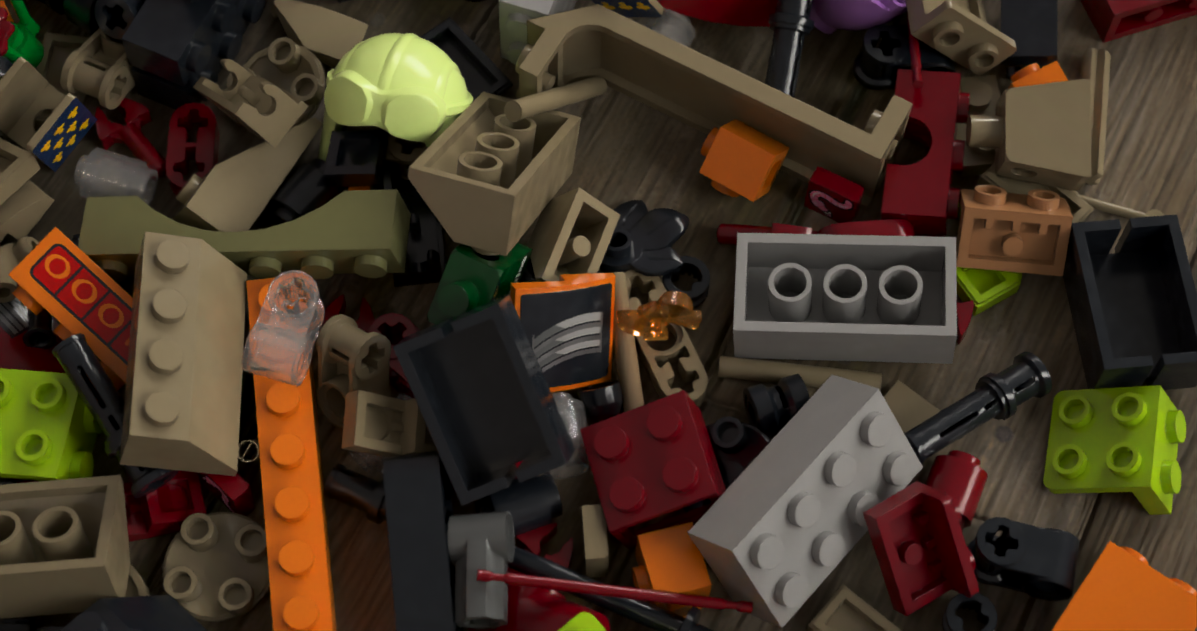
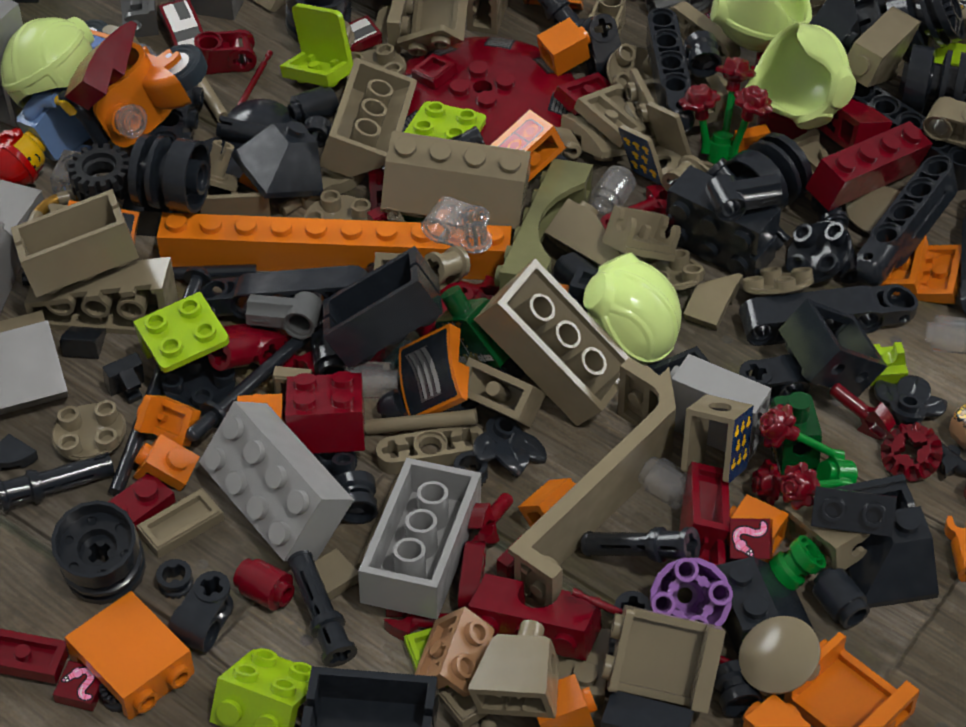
camera: 105 degrees right, 15 degrees down
(555, 98) = (614, 388): dark tan bar -> none
(614, 591) = (251, 352): dark red piece -> none
(651, 318) = (429, 421): clear orange piece -> none
(920, 547) = (224, 538): dark red bracket -> none

